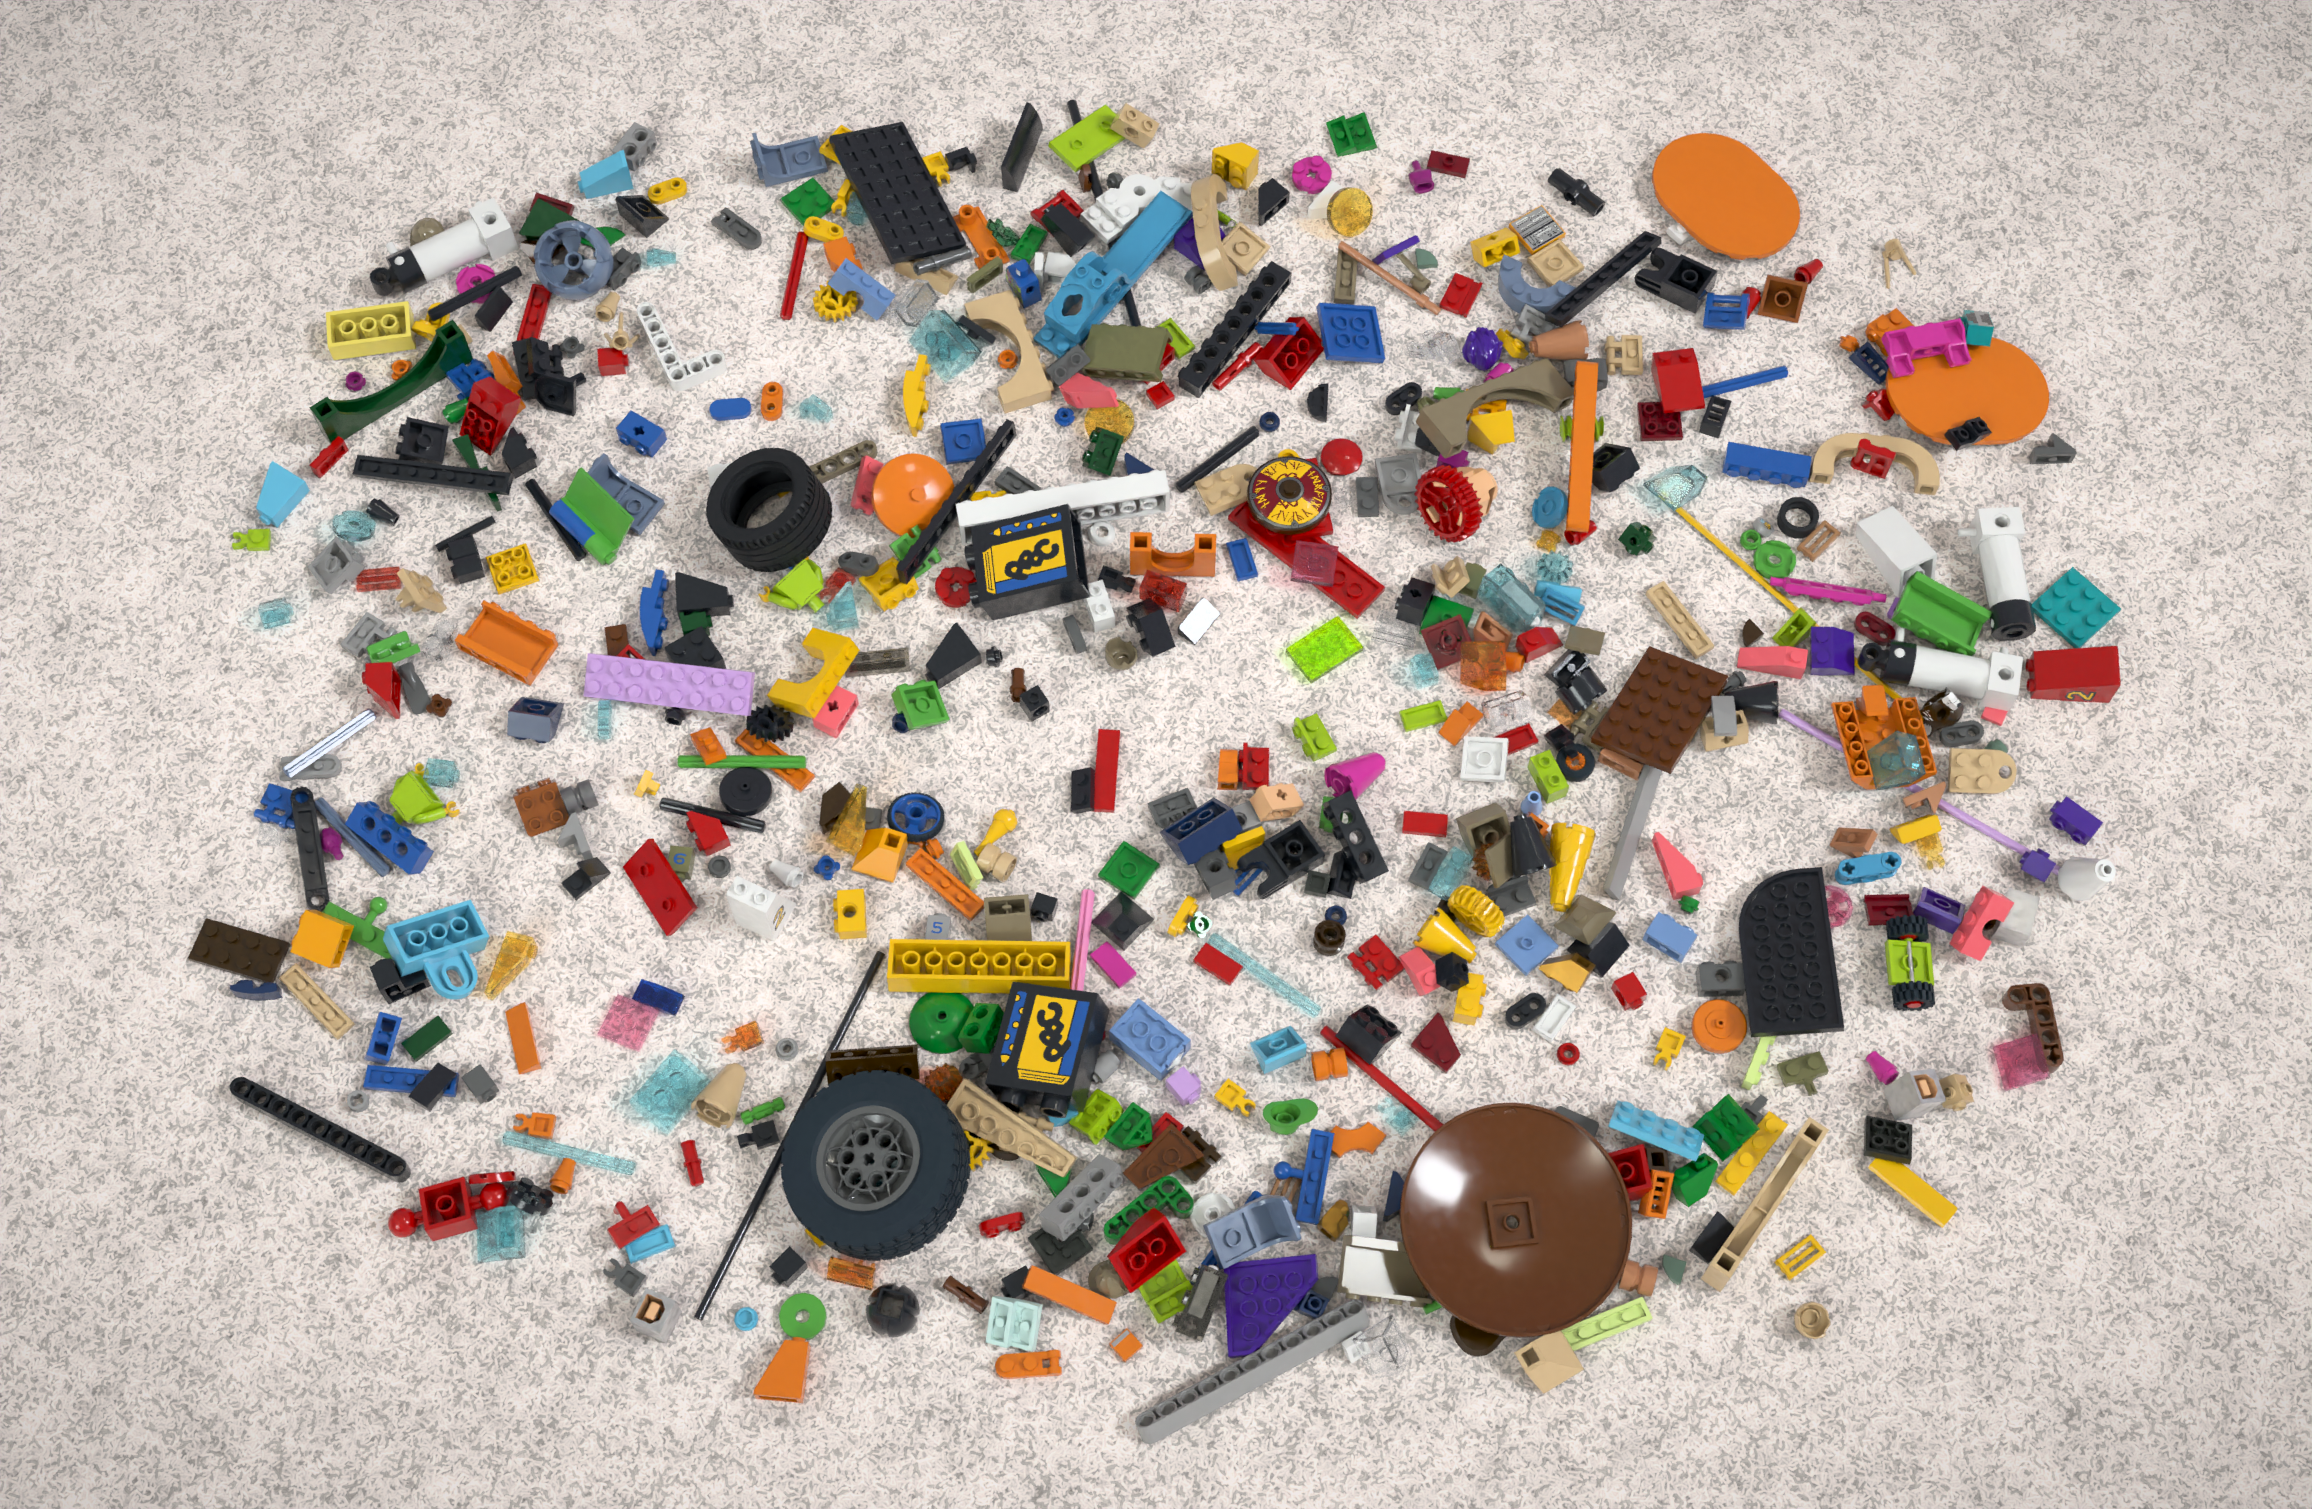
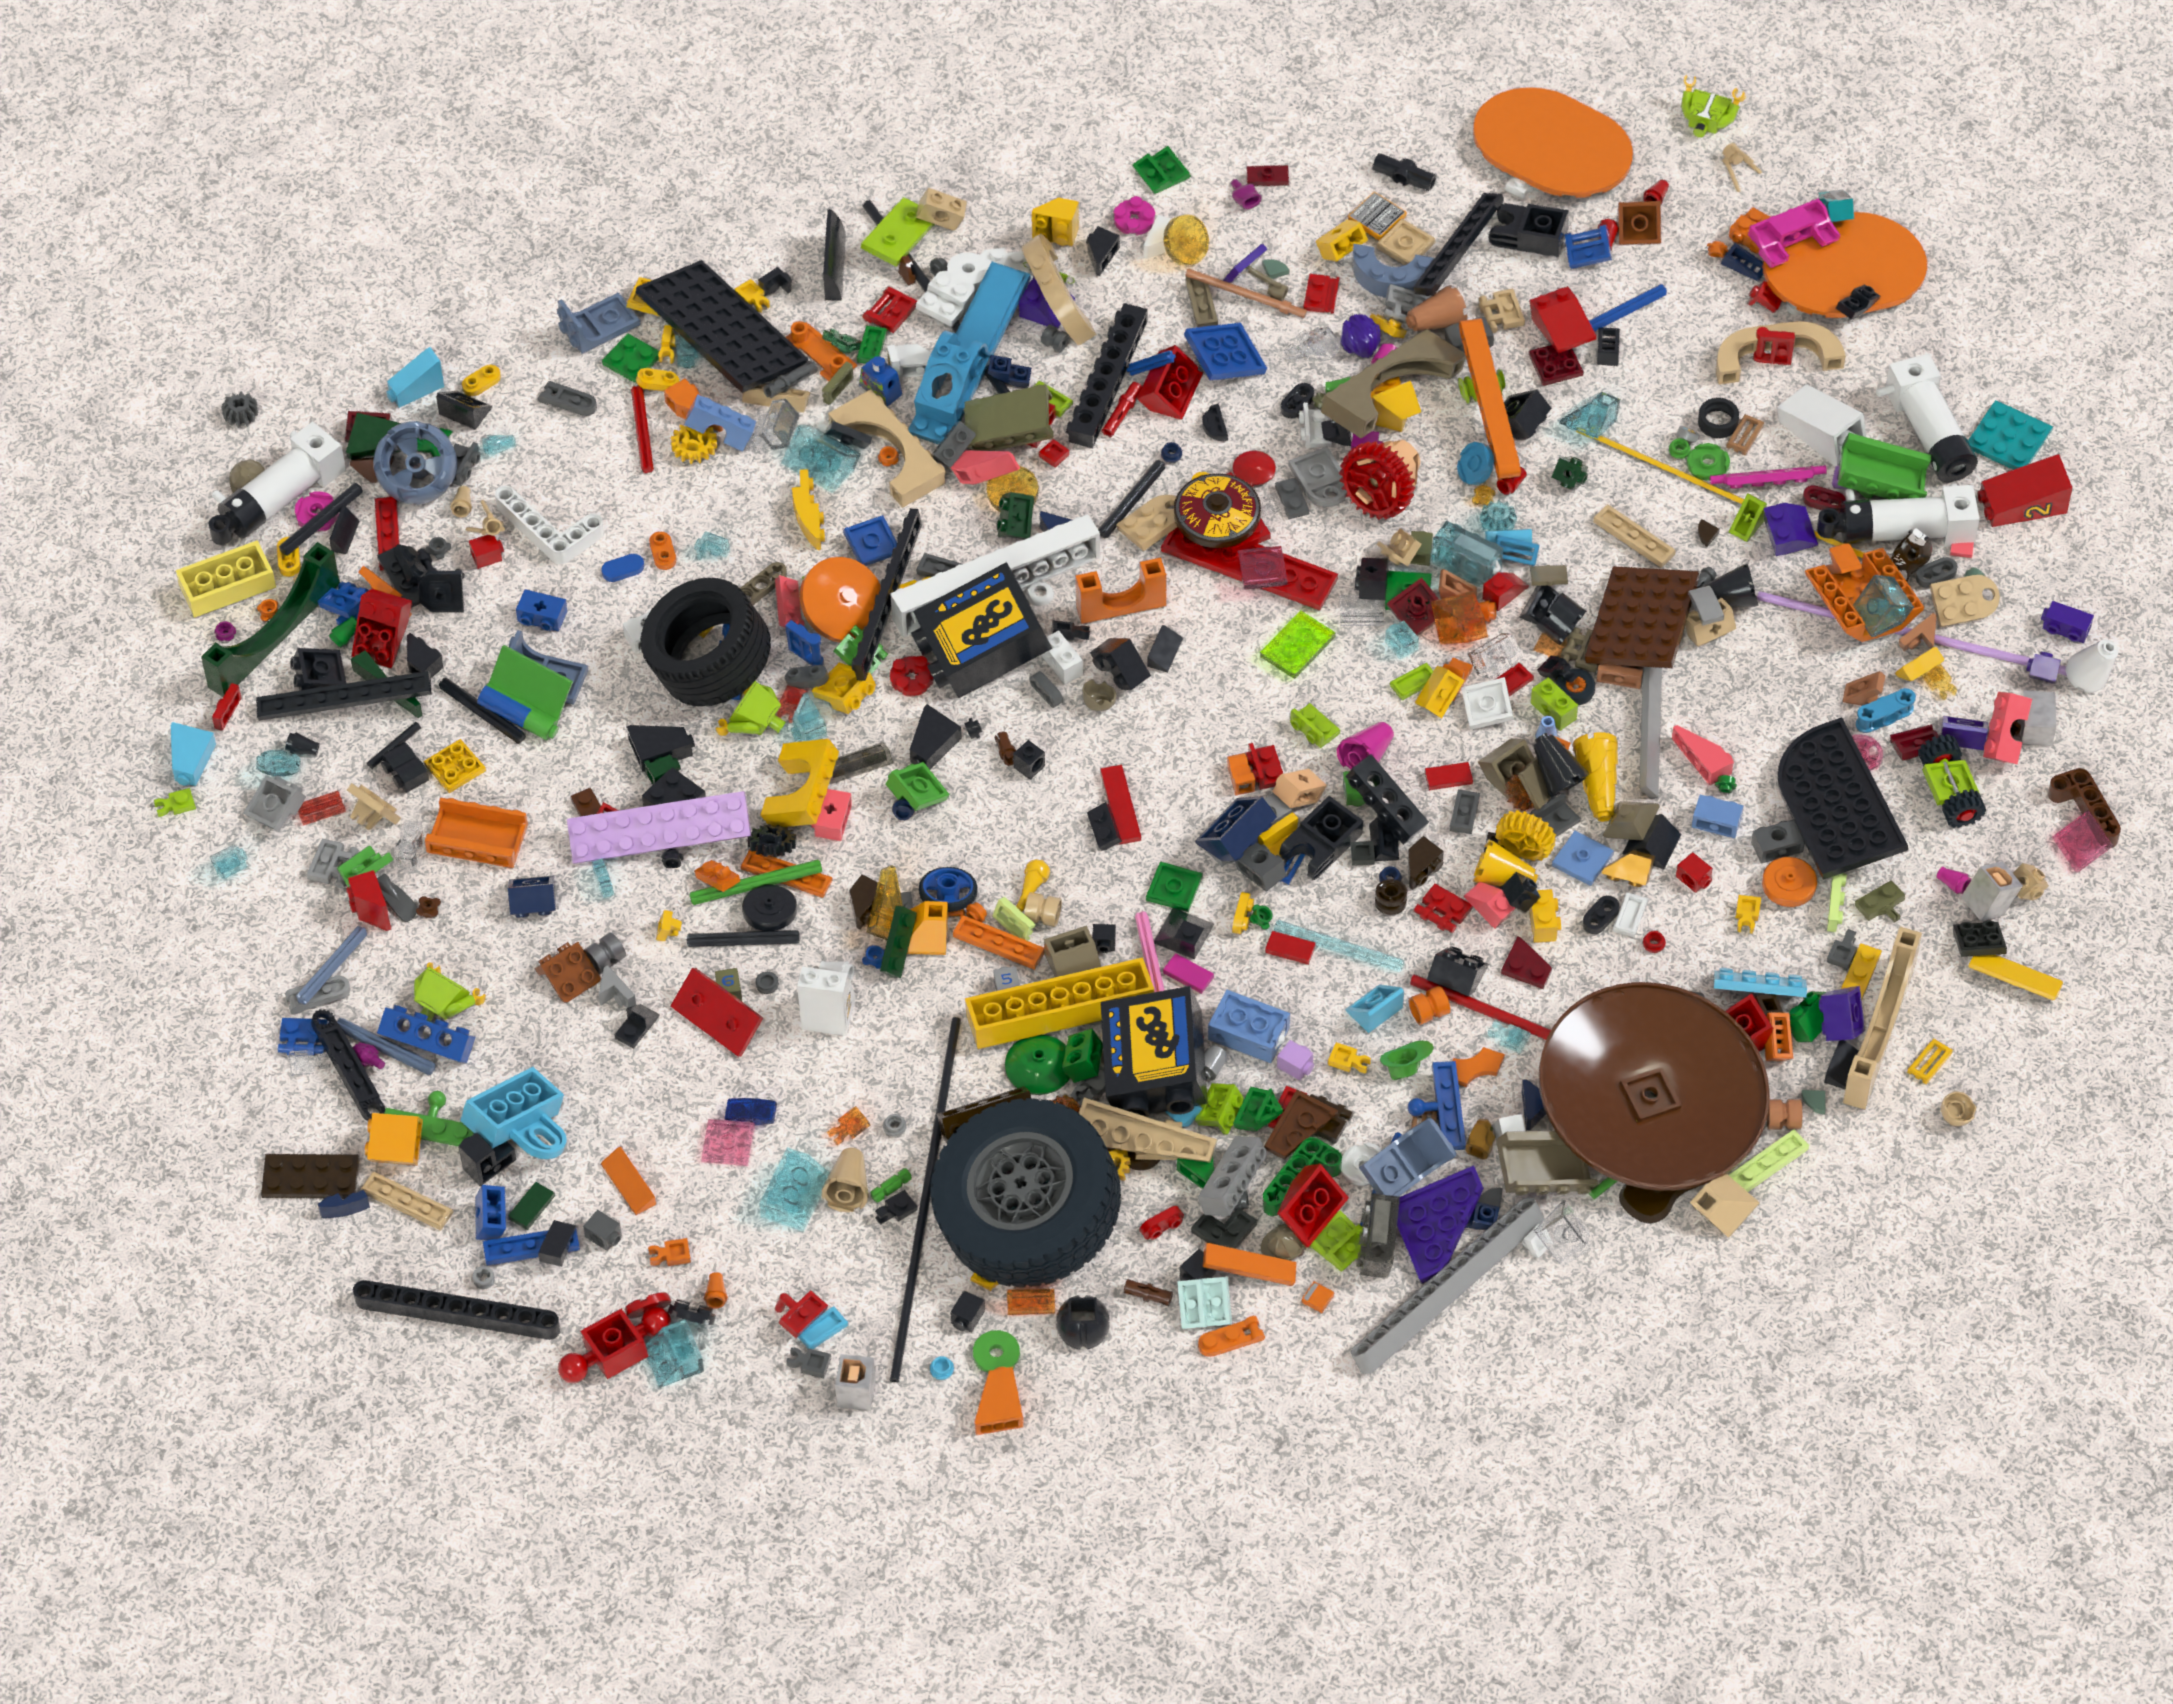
camera: 15 degrees left, 10 degrees down
(424, 329) = (284, 564): yellow plate -> none
(436, 768) = (456, 965): clear light blue brick -> none
(443, 166) = (239, 409): none -> dark grey gear
(511, 961) = (592, 1114): clear yellow slope -> none
(564, 1151) = (705, 1270): clear light blue axle -> none
(636, 145) = (437, 337): light grey brick -> none
(651, 611) = (615, 771): blue slope -> none
(692, 1163) = (838, 1247): red axle -> none
(709, 833) = (746, 953): red slope -> none
(849, 860) = (898, 941): none -> dark green plate
(850, 901) = (915, 979): yellow brick -> none
(865, 532) = (800, 642): none -> blue plate
(1064, 421) = (962, 499): blue plate -> none
(1066, 229) = (908, 319): black slope -> none
(1147, 305) = (1013, 374): none -> dark blue slope
(1163, 590) = (1121, 625): clear red brick -> none
(1171, 807) = (1196, 820): dark grey plate -> none
(1242, 559) = (1187, 584): blue tile -> none
(1244, 248) = (1092, 298): tan plate -> none
(1371, 907) = (1422, 860): none -> dark brown slope
(1442, 735) = (1439, 691): none -> yellow panel
(1450, 873) = (1489, 810): clear light blue slope -> none
(1726, 1127) = (1824, 965): green slope -> none
(1726, 1188) = (1842, 1014): none -> dark purple slope
(1766, 465) = (1673, 377): blue brick -> none
(1774, 660) = (1739, 549): coral slope -> none
(1883, 200) = (1708, 111): none -> lime torso
(2056, 452) = (1947, 301): dark grey slope -> none

